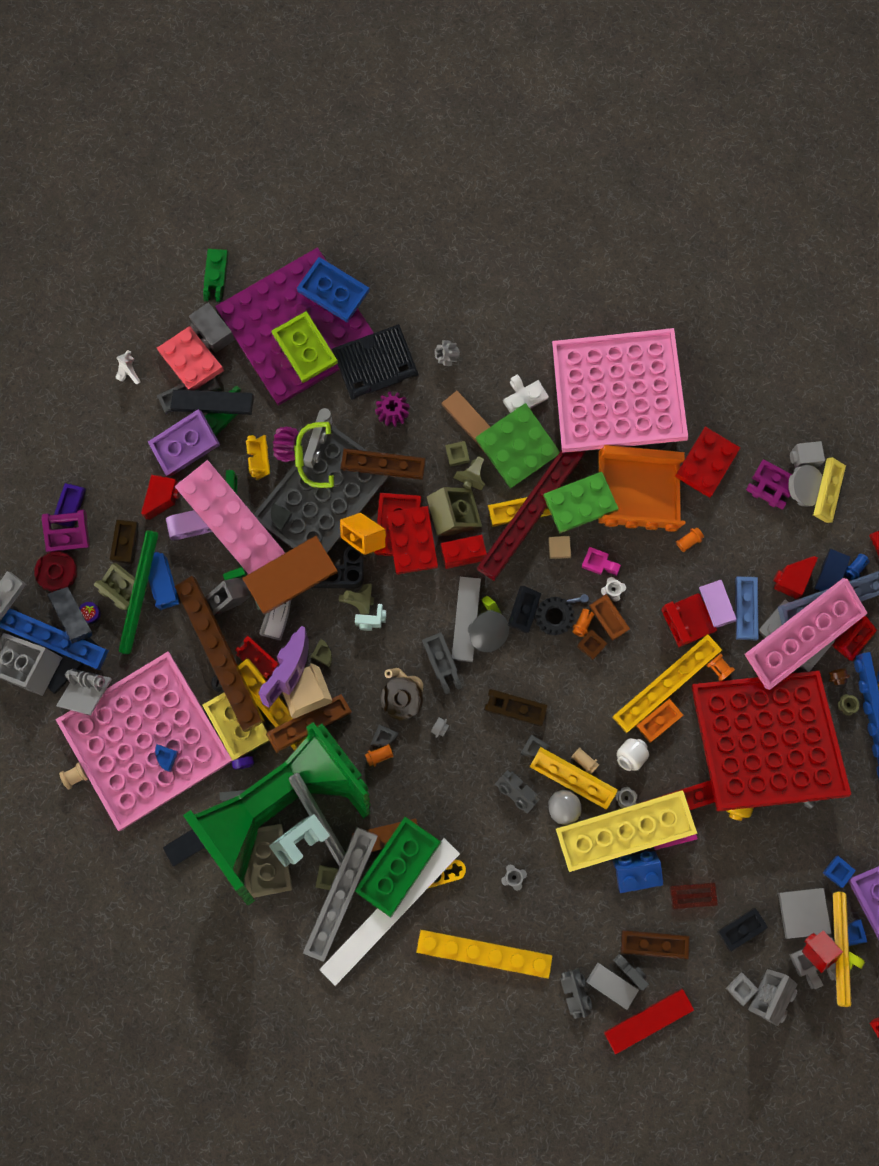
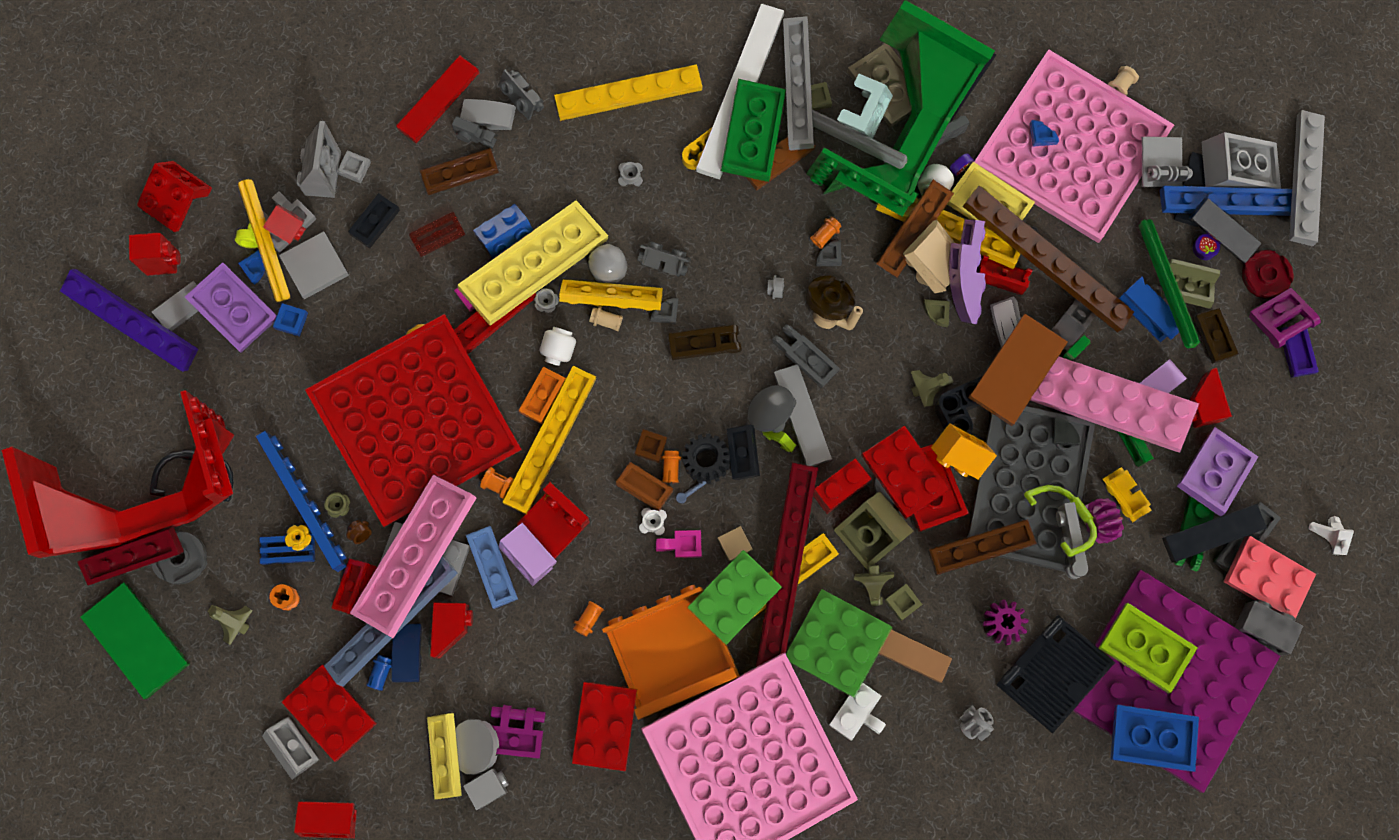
camera: 150 degrees right, 0 degrees up
(215, 273) = (1304, 703): green hinge -> none
(268, 758) = (938, 173): none -> white head
(367, 622) = (906, 363): light aqua bracket -> none

